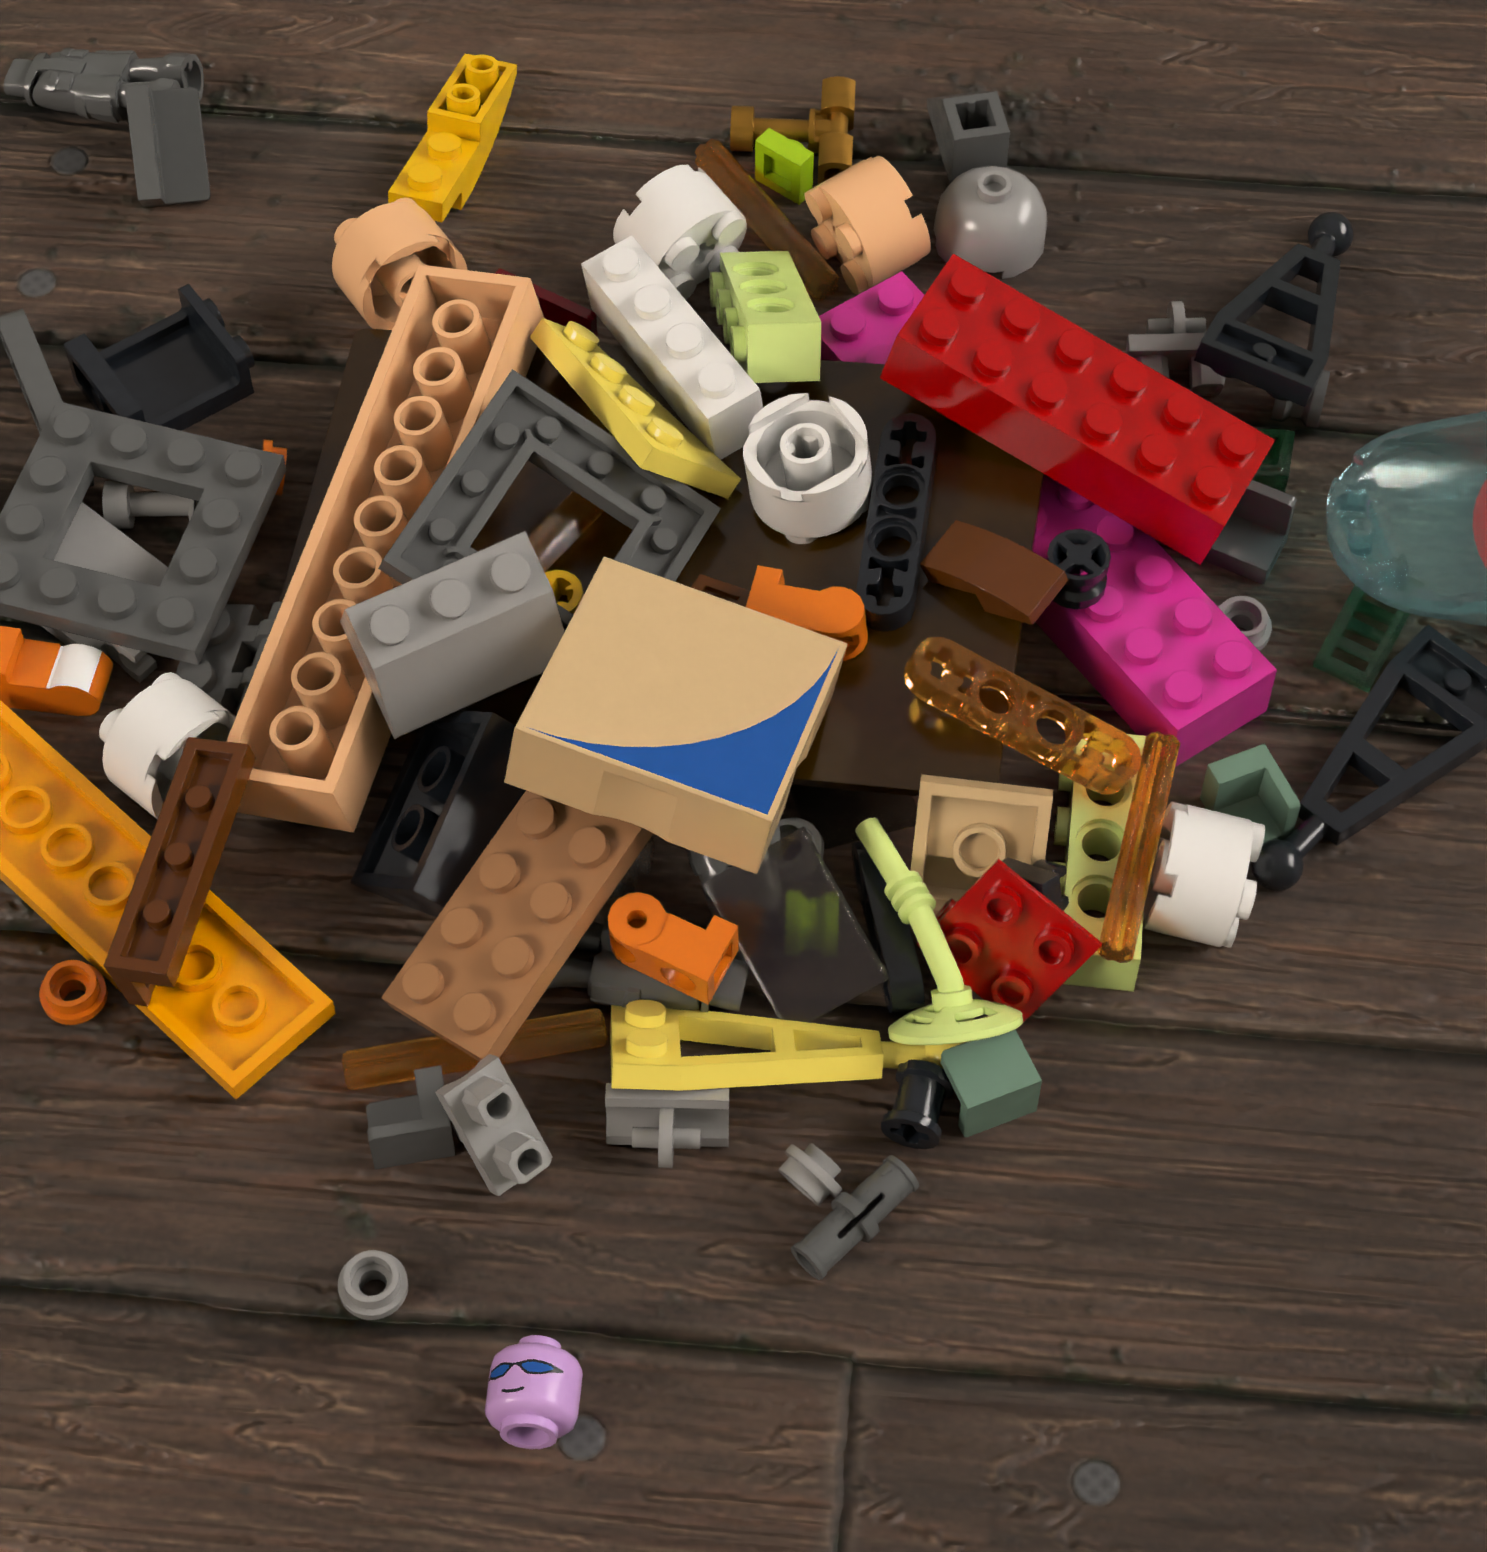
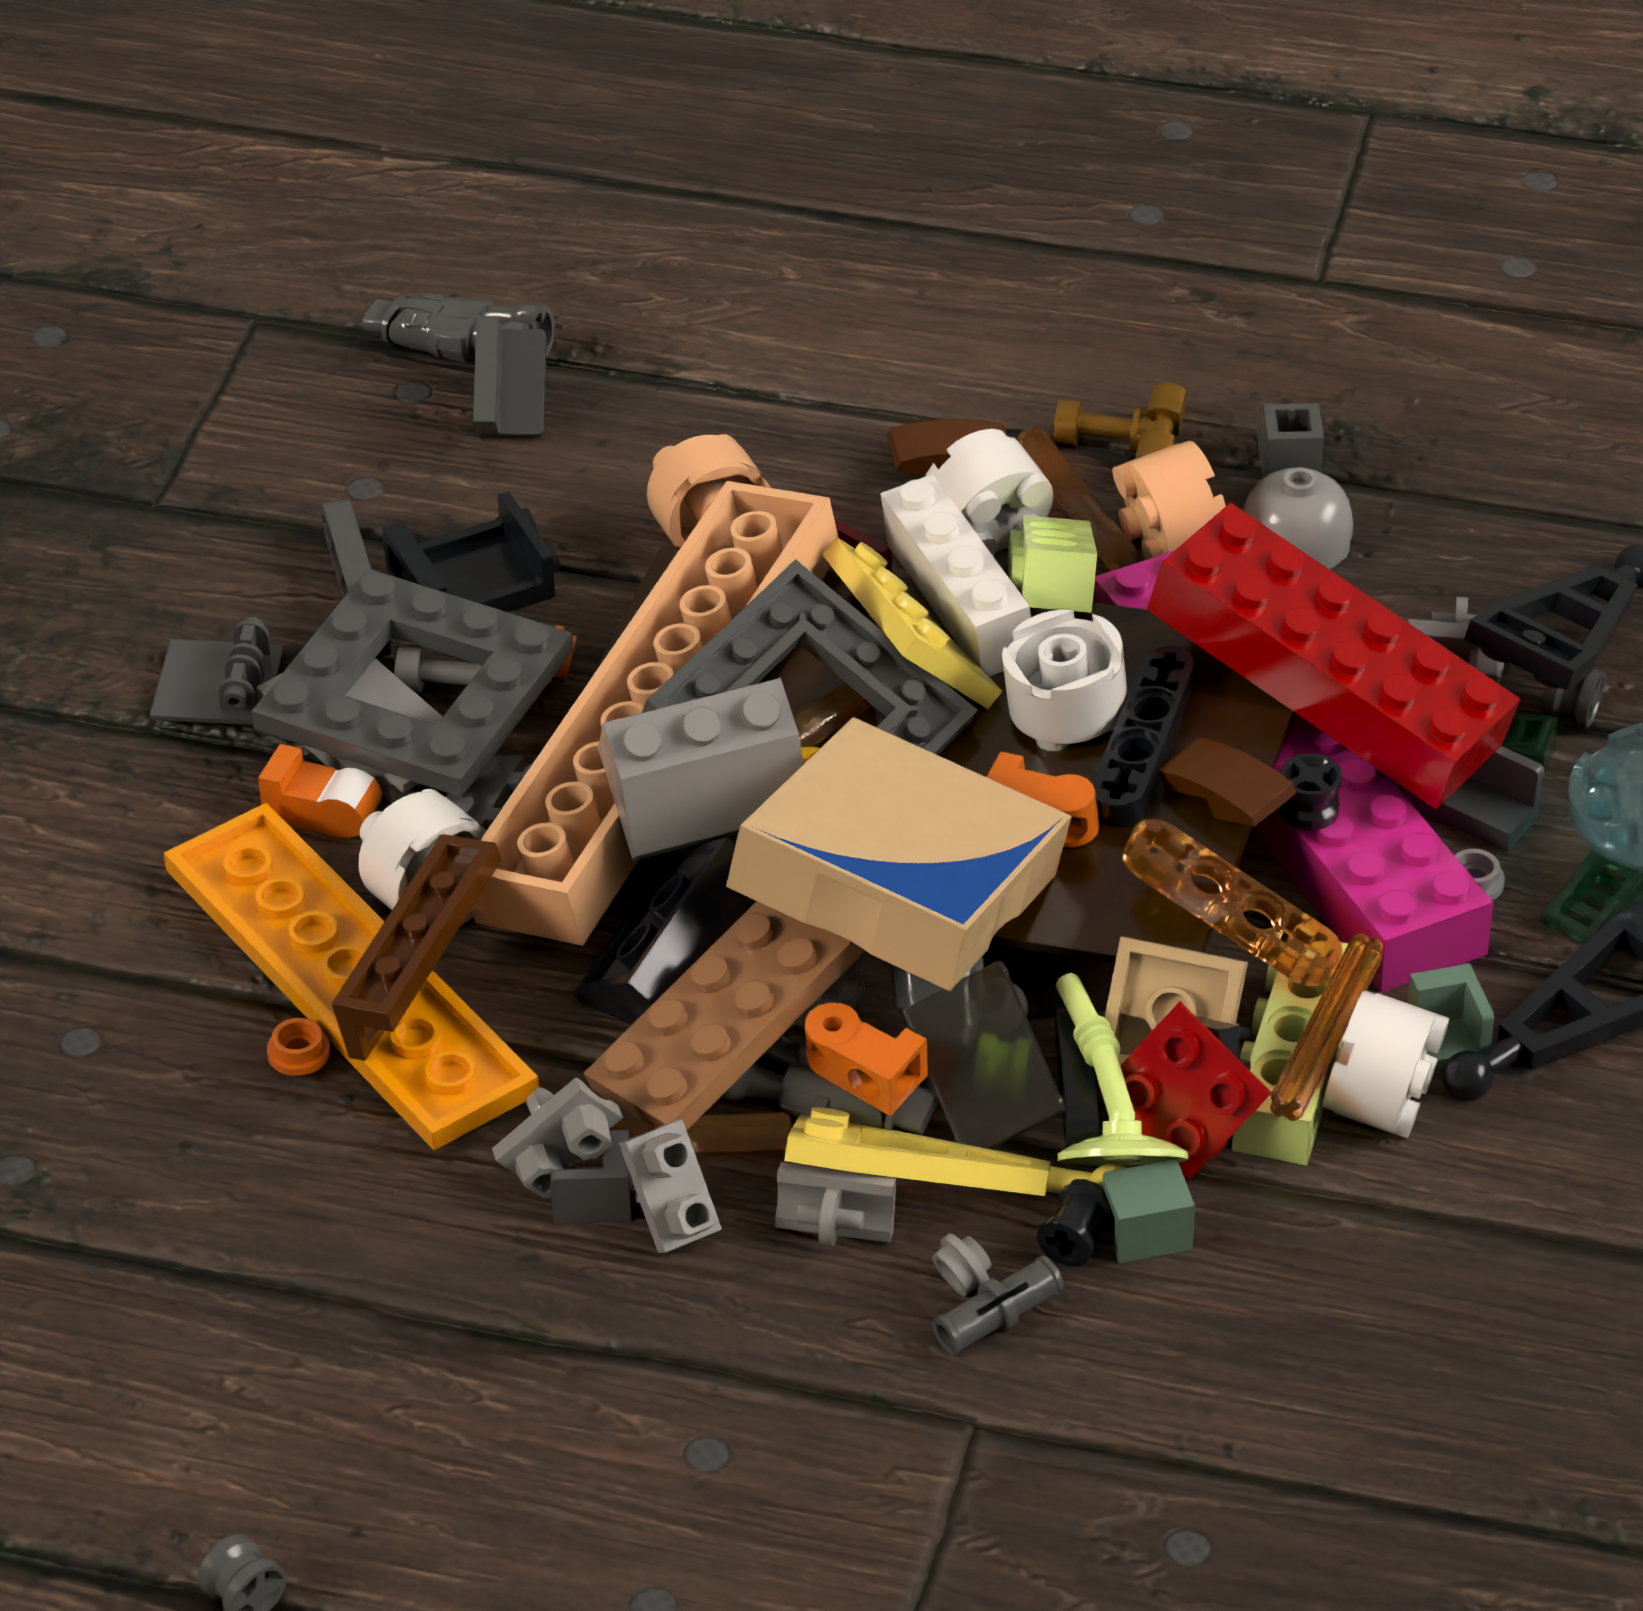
camera: 10 degrees right, 15 degrees down
(363, 1074) = (556, 1133): none -> light grey hips
(372, 1266) = (534, 1304): light grey plate -> none
(458, 136) = (791, 399): yellow slope -> none
(533, 1392) = (667, 1398): lavender head -> none
(617, 170) = (925, 442): none -> reddish brown slope
(783, 165) = (1099, 451): lime plate -> none

